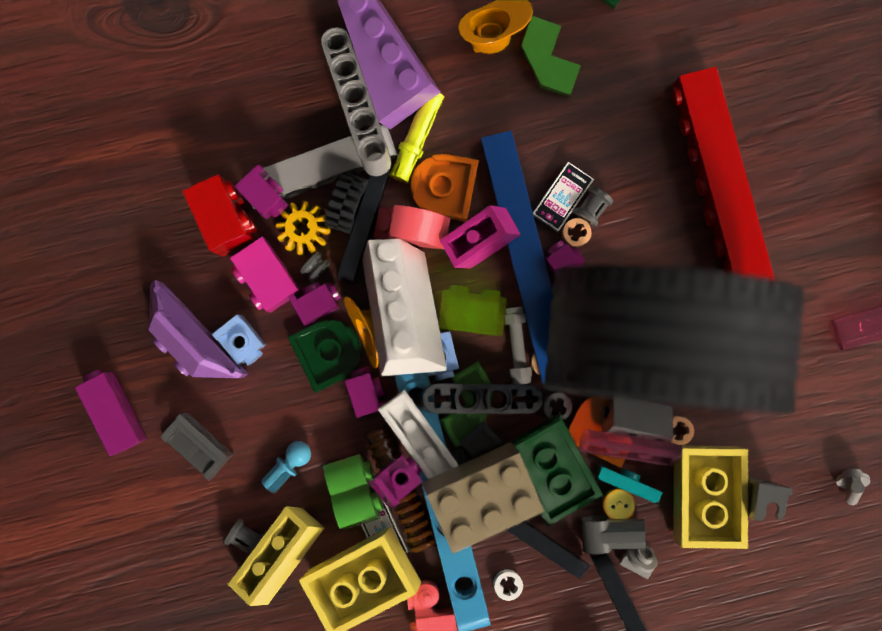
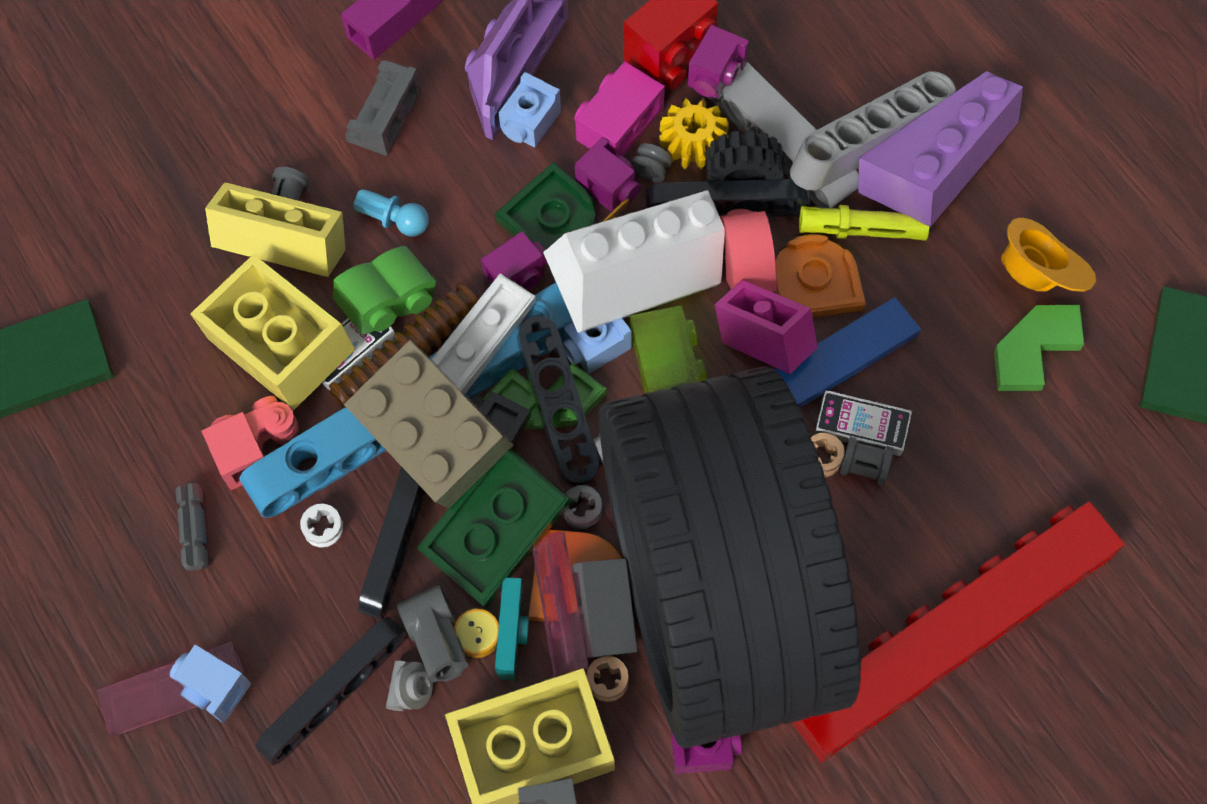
camera: 70 degrees right, 20 degrees down
(385, 483) = (400, 326): magenta brick -> none

